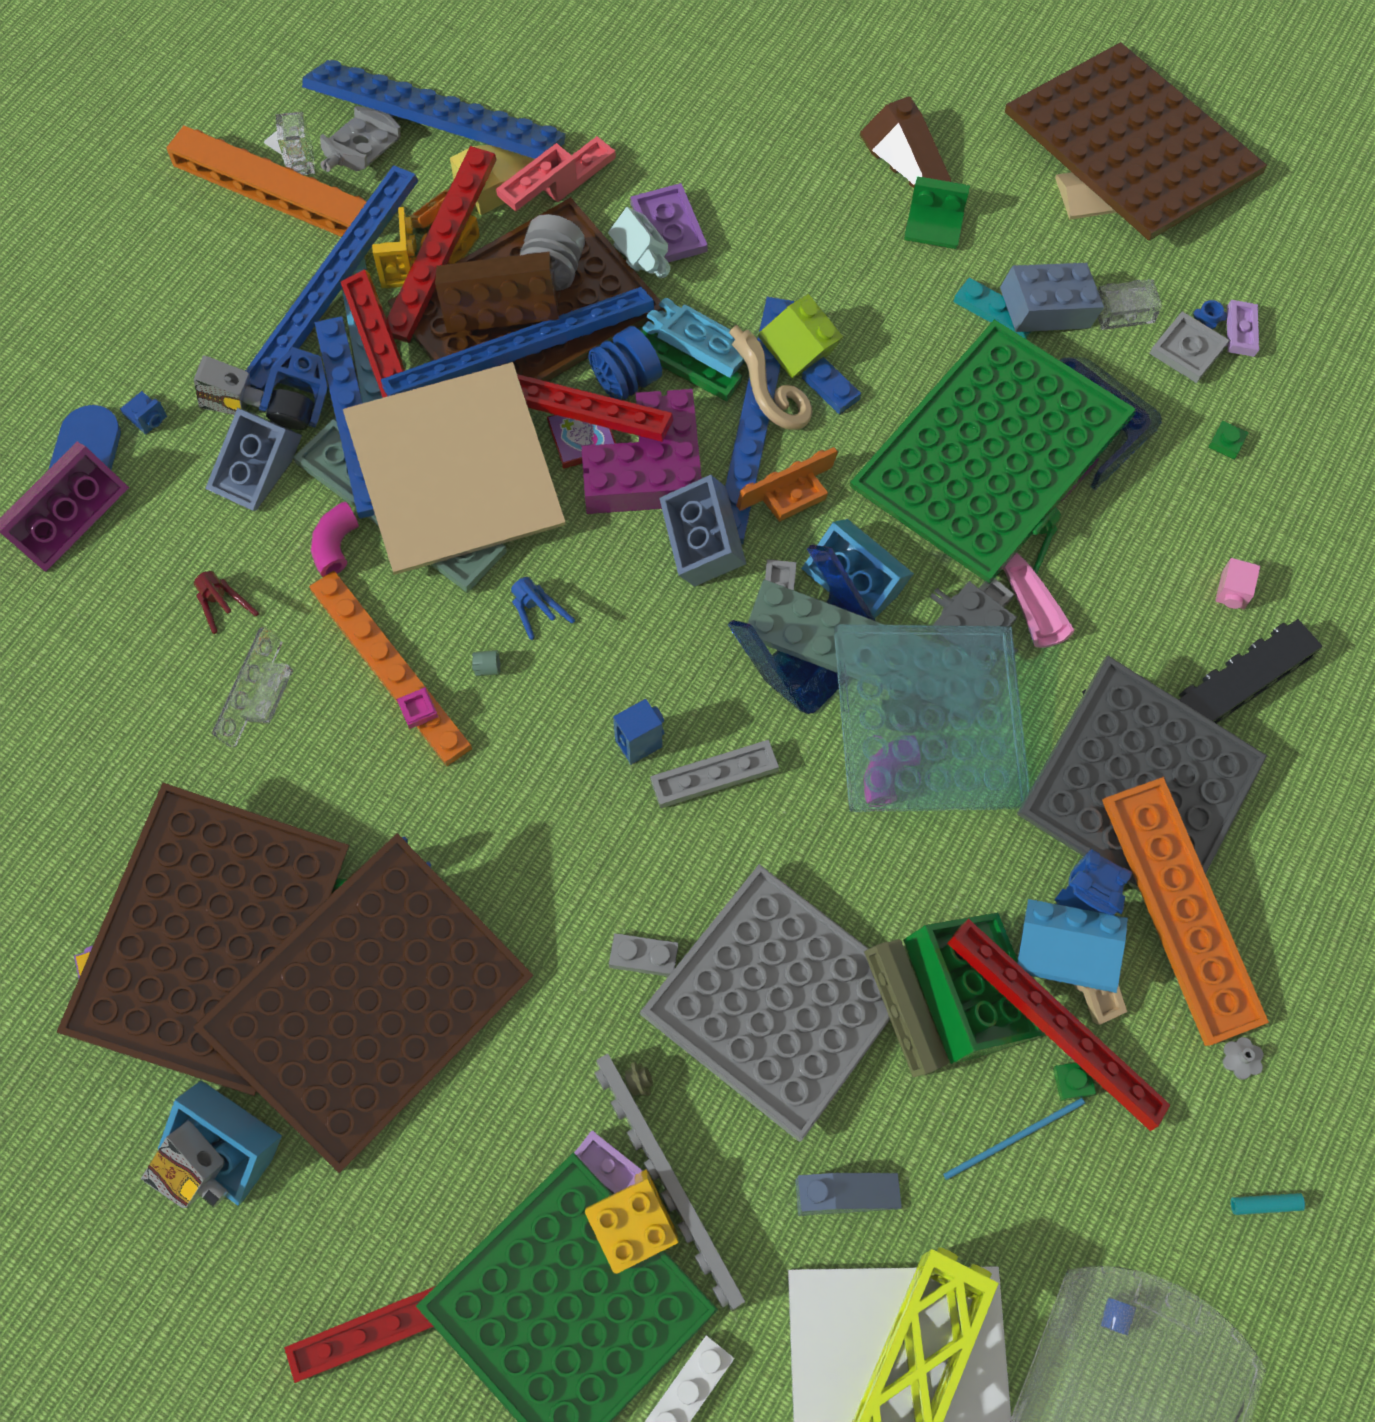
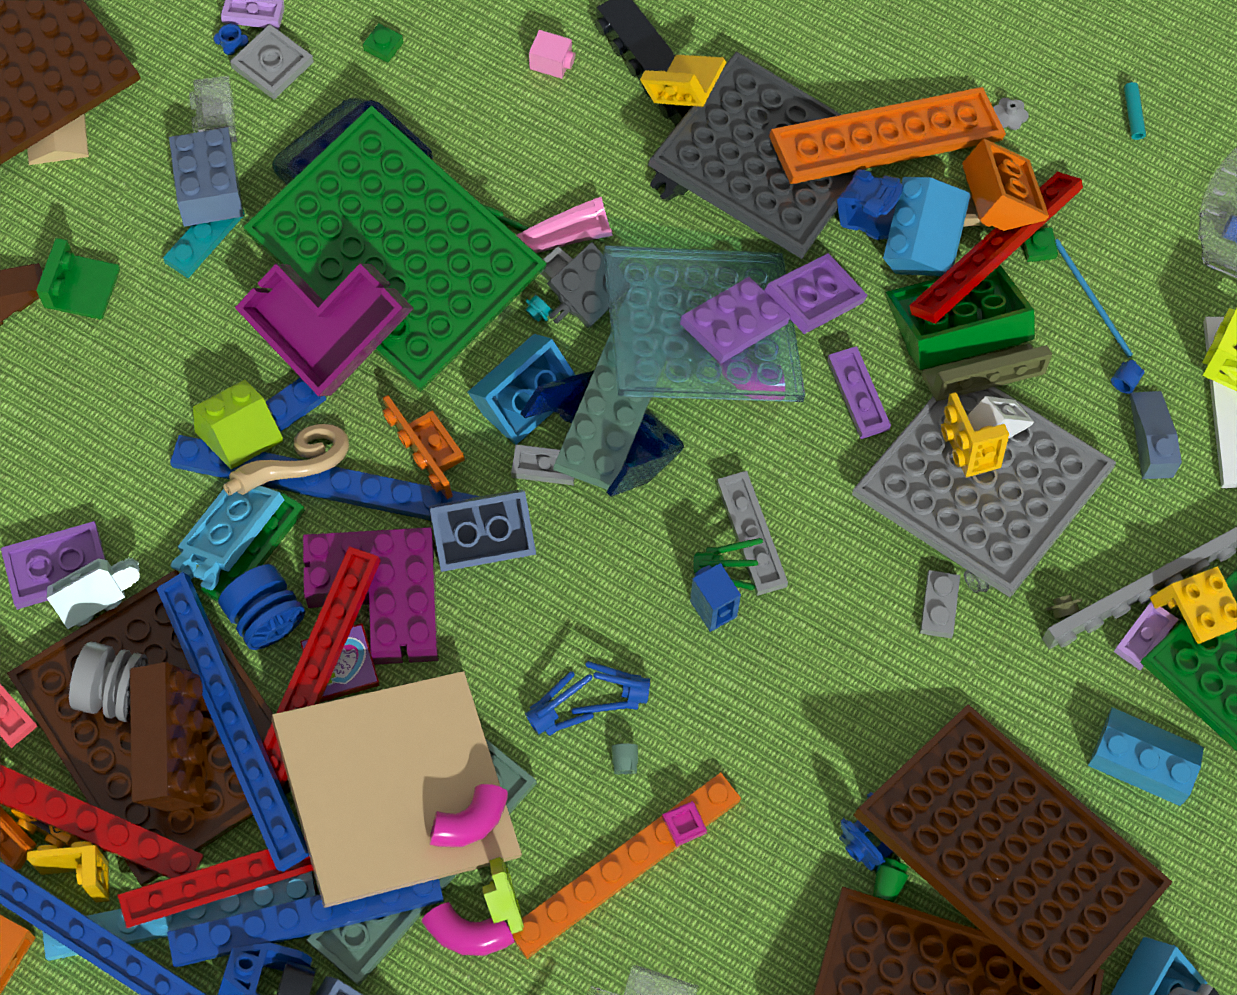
camera: 90 degrees left, 0 degrees up
(357, 557) = (501, 896): none -> lime plate
(412, 521) = (473, 822): none -> dark pink cylinder
(475, 1158) = (1147, 757): none -> dark azure slope
(553, 670) = (634, 688): none -> blue plant
(678, 735) = (712, 558): none -> green plant
(797, 976) = (972, 450): none -> yellow bracket
(840, 1008) = (998, 411): none -> white slope
(874, 879) = (858, 392): none -> medium lavender plate
(895, 388) = (326, 337): none -> magenta piece
(914, 1168) = (1127, 376): none -> blue hose
(935, 744) = (734, 319): none -> medium lavender plate
(945, 580) = (538, 308): none -> teal plate
(981, 832) = (816, 293): none -> medium lavender plate
(1133, 1034) = (1003, 187): none -> orange slope
(1212, 697) = (686, 80): none -> yellow bracket

